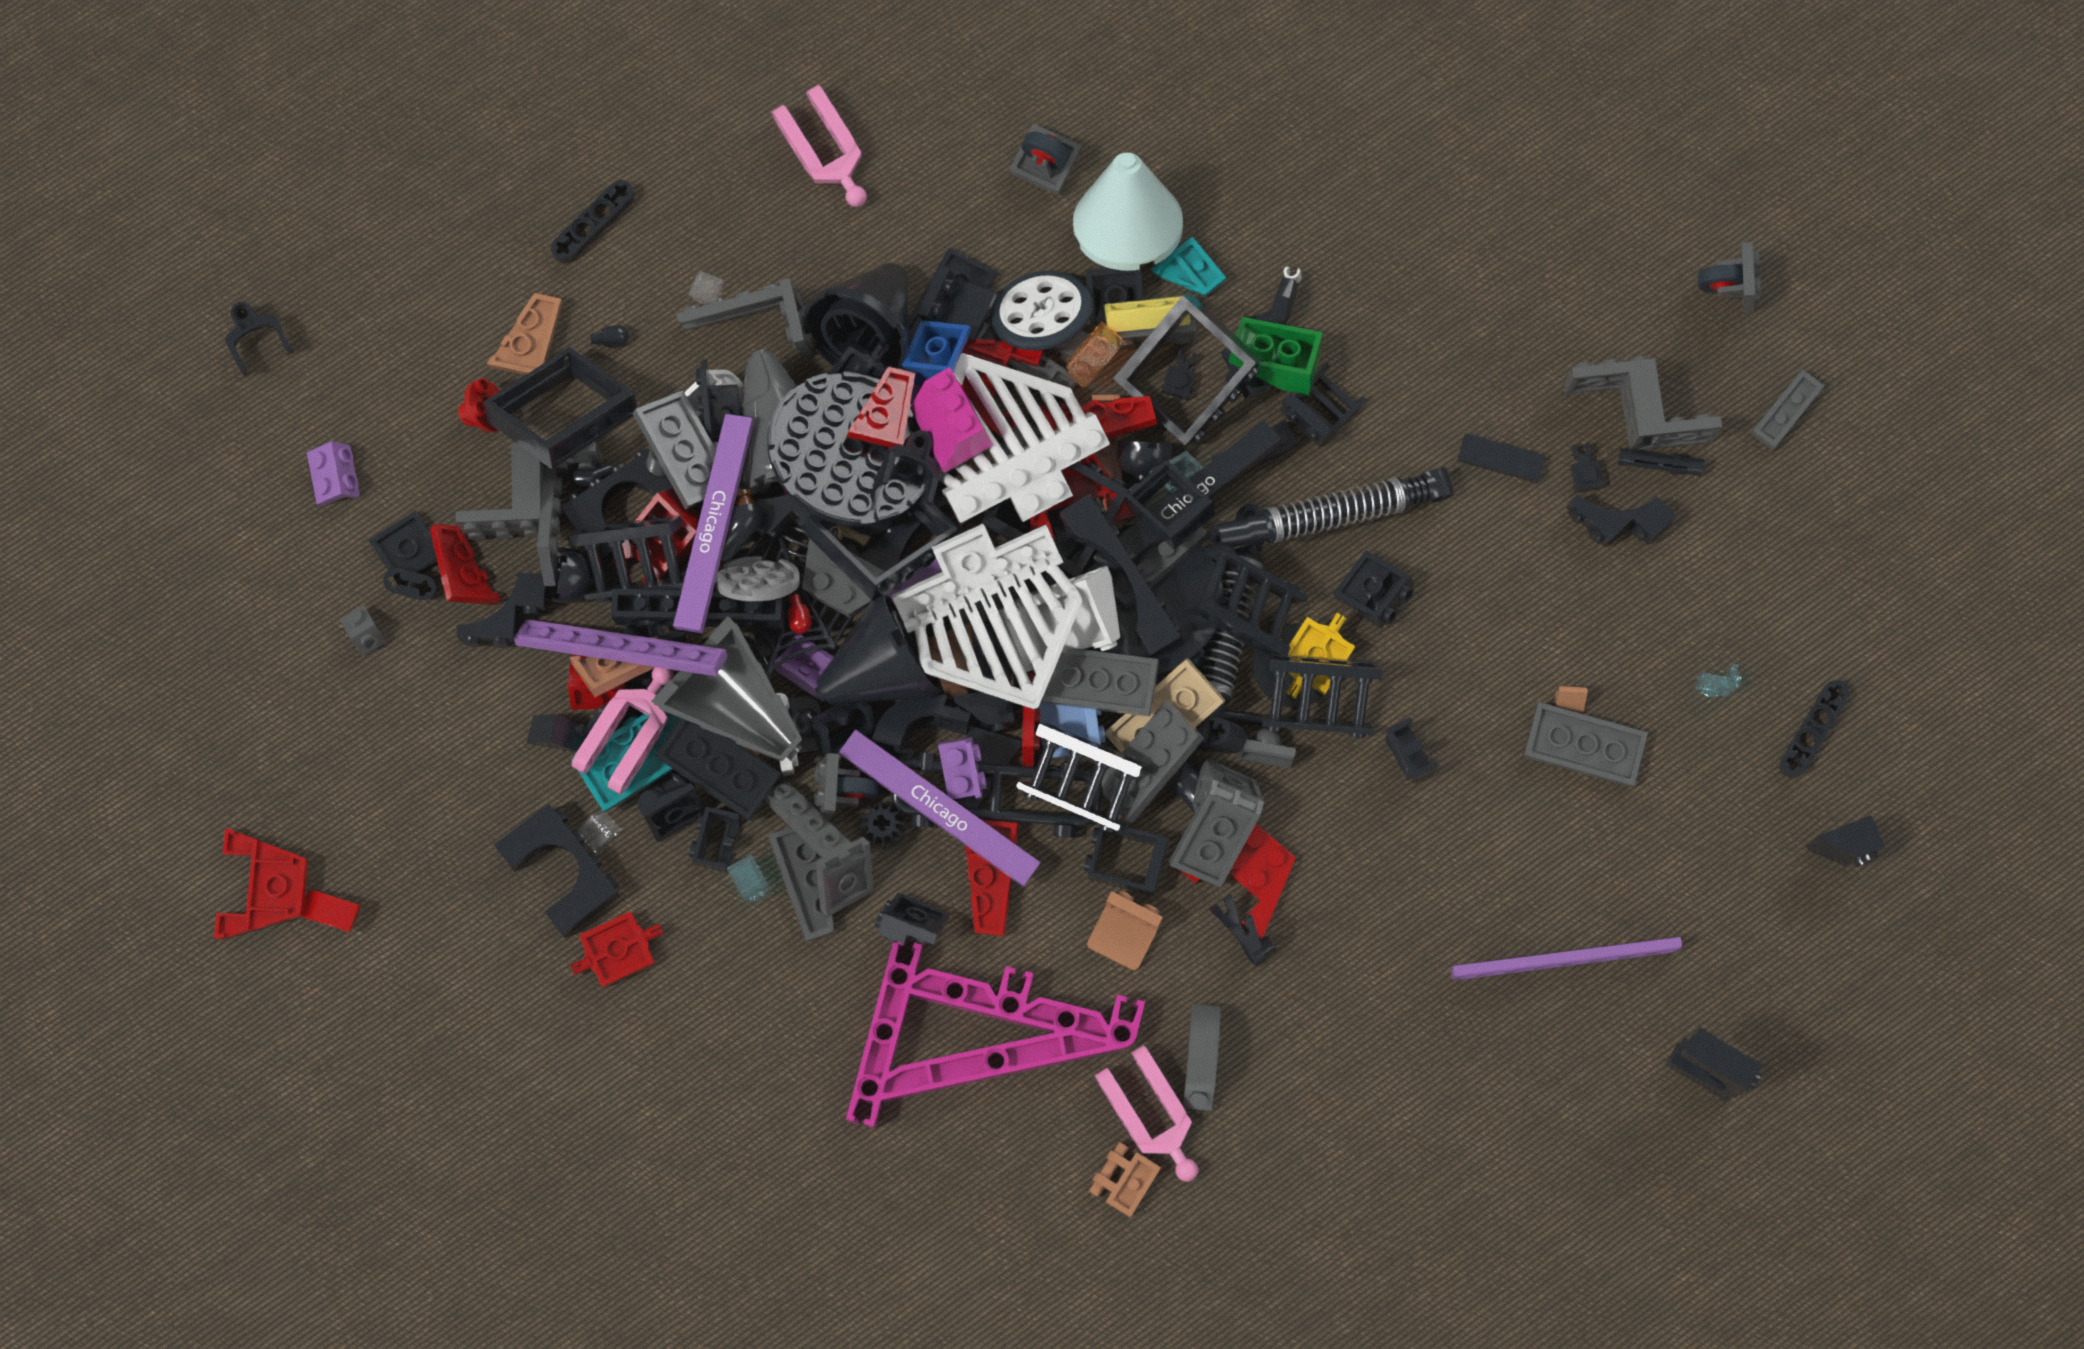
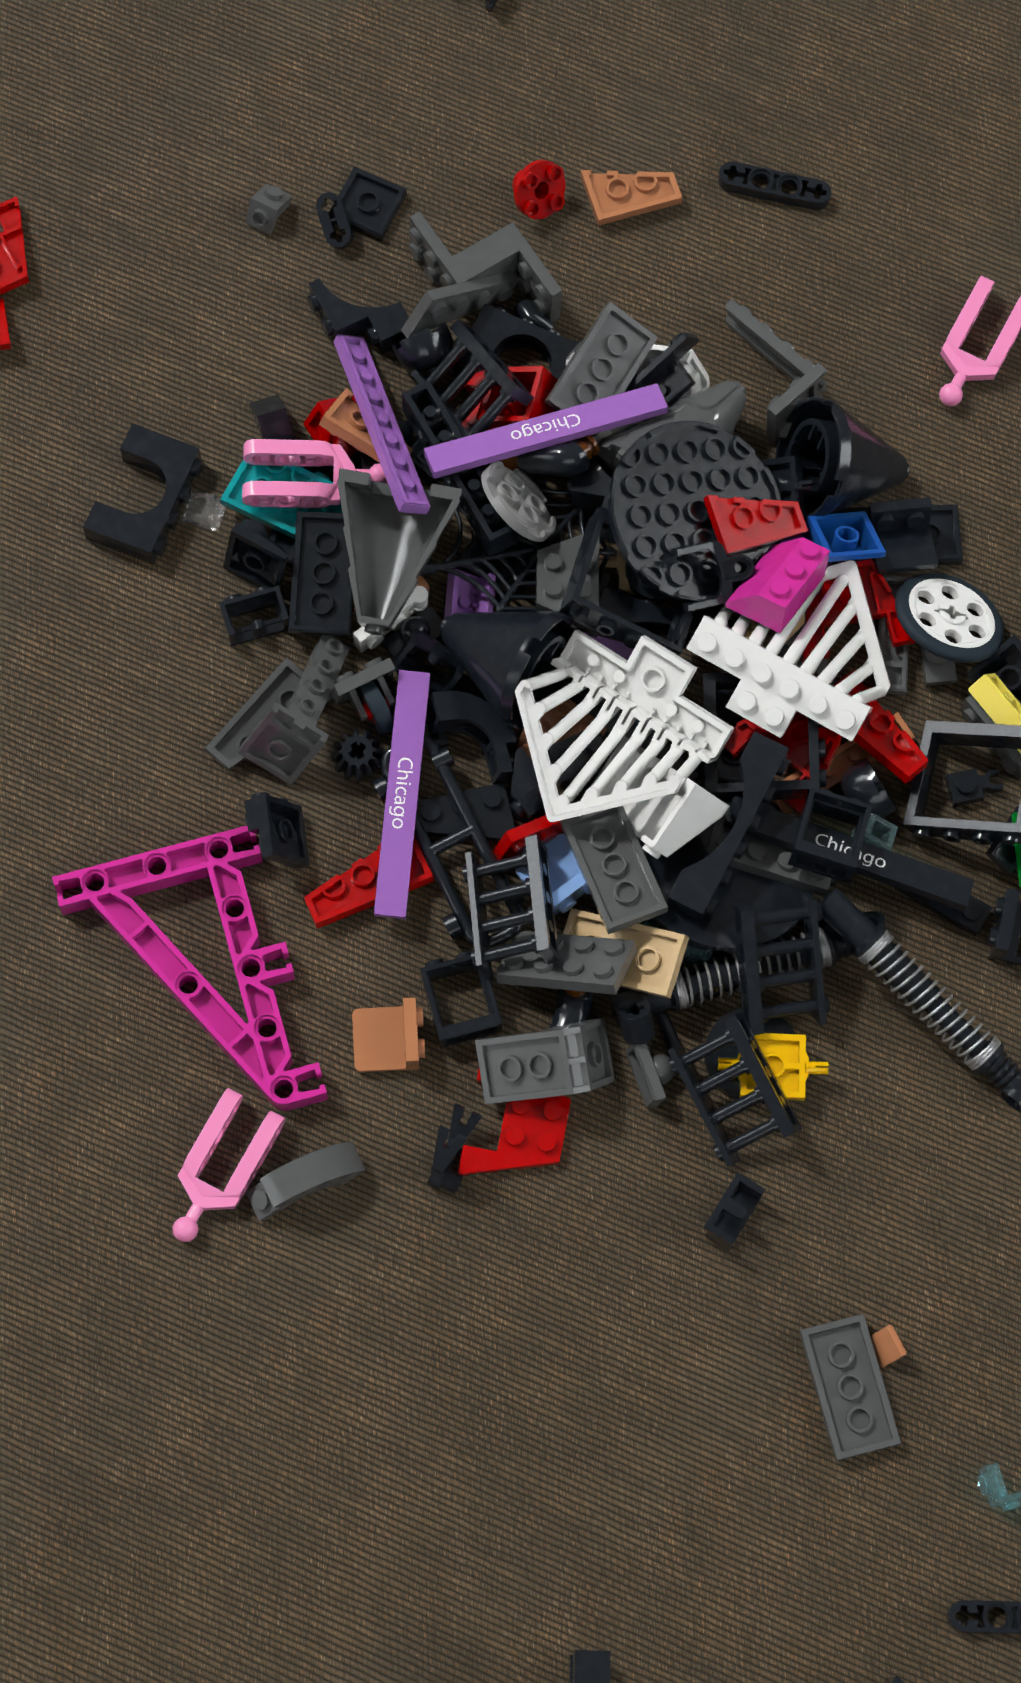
camera: 55 degrees right, 5 degrees down
(332, 473) = (398, 103): medium lavender bracket -> none
(458, 570) = (373, 254): red wing -> none
(579, 434) = (561, 271): black window -> none
(611, 336) = (675, 260): black cylinder -> none
(616, 949) = (99, 587): red plate -> none
(706, 288) = (777, 315): clear tile -> none
(748, 879) = (234, 664): clear light blue brick -> none
(798, 615) = (508, 561): red cylinder -> none
(961, 768) = (453, 792): medium lavender bracket -> none
(1093, 354) = (936, 687): clear orange window -> none
(1133, 1183) = (142, 1184): nougat plate -> none
(1375, 589) = (876, 1088): black plate -> none
(1565, 959) = (617, 1490): medium lavender tile -> none

